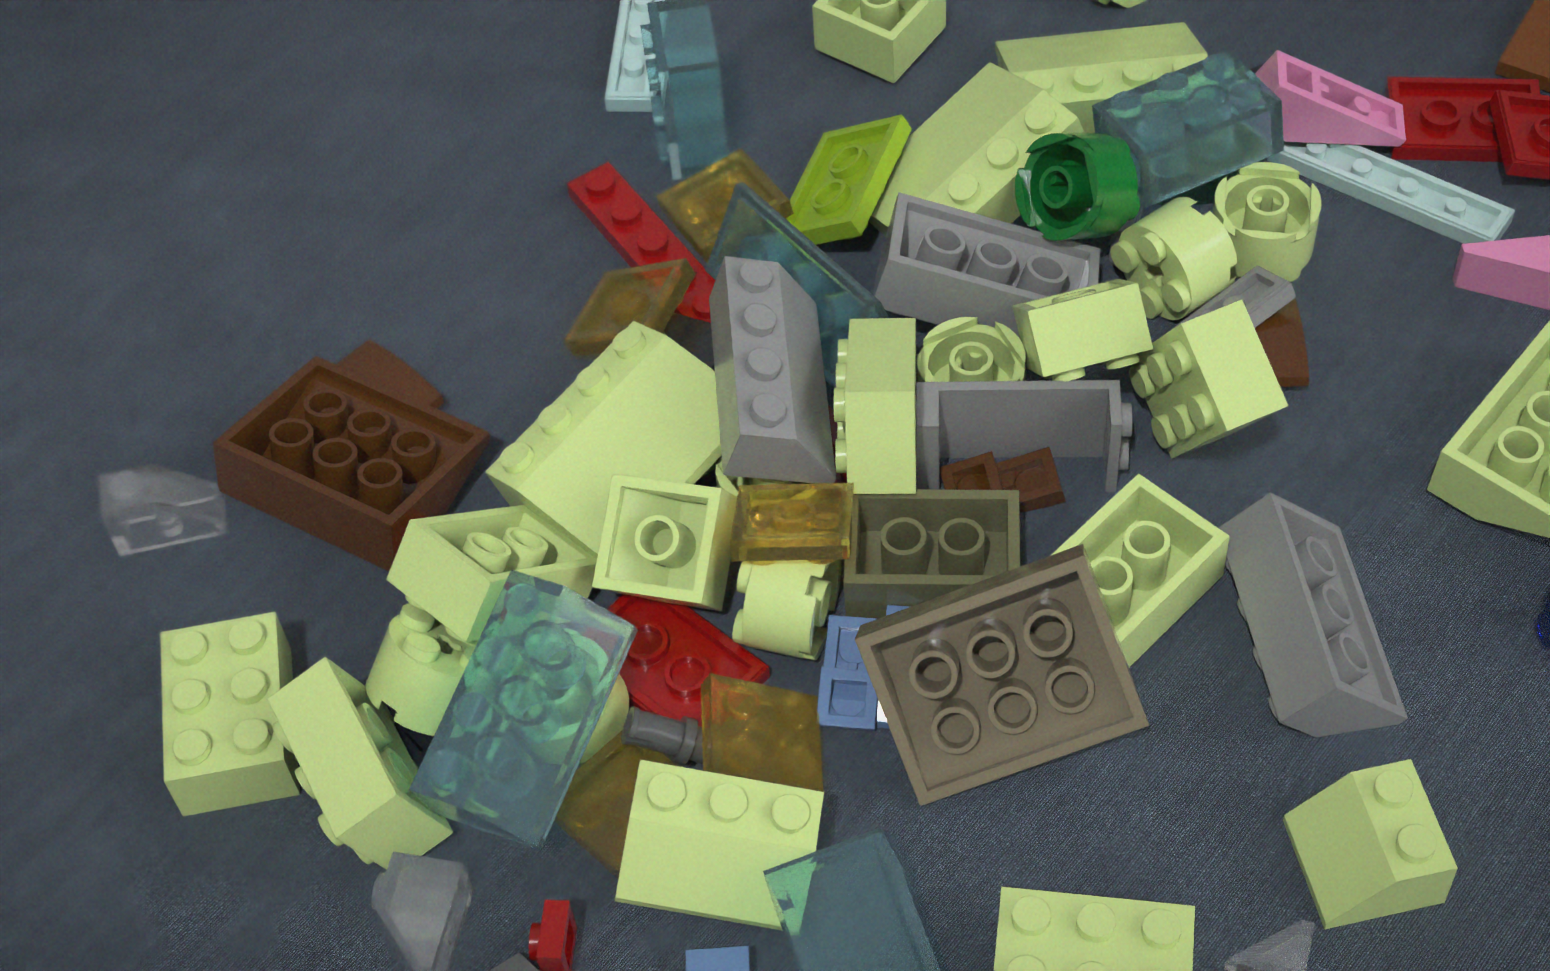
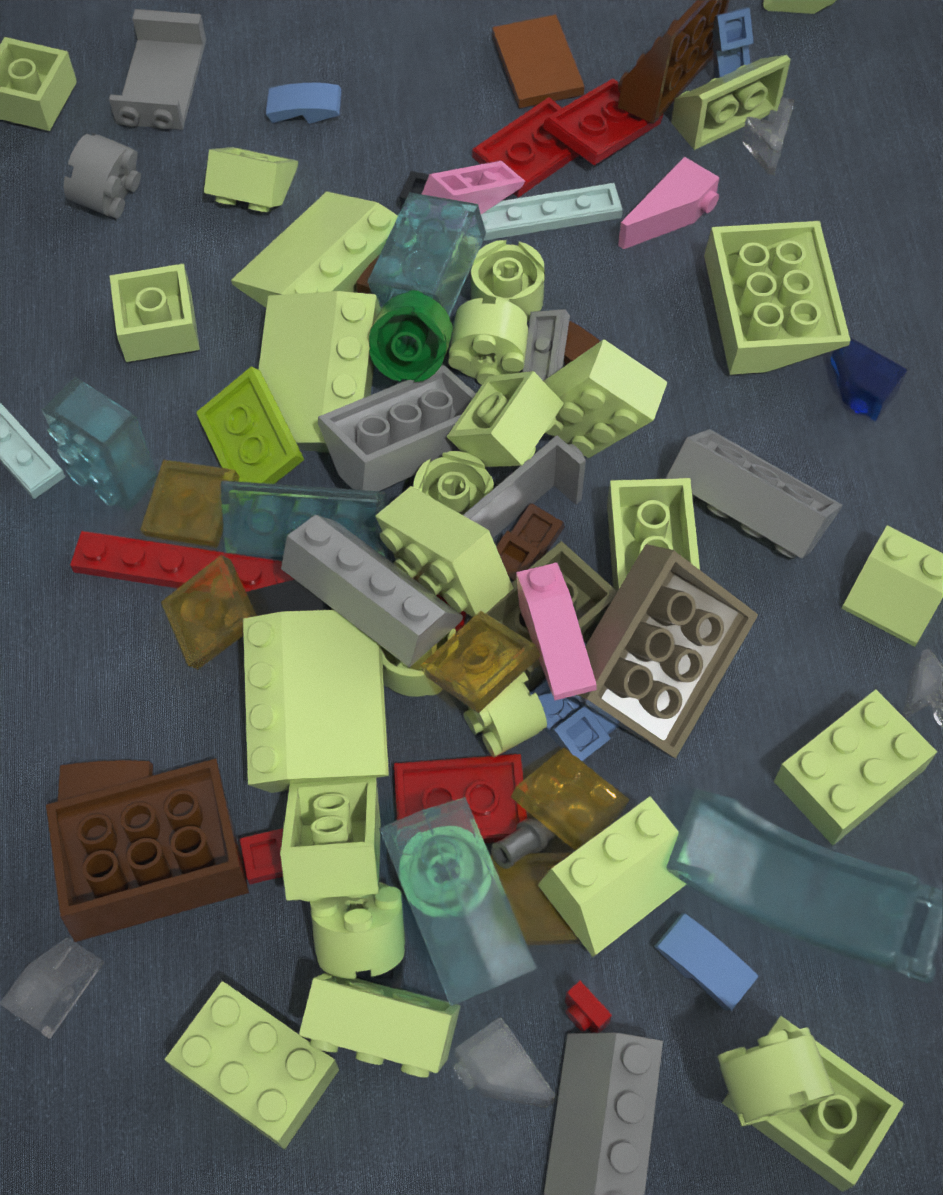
camera: 50 degrees left, 10 degrees up
(666, 541) = (411, 733): yellowish green slope -> none
(894, 549) = (555, 630): none -> bright pink slope

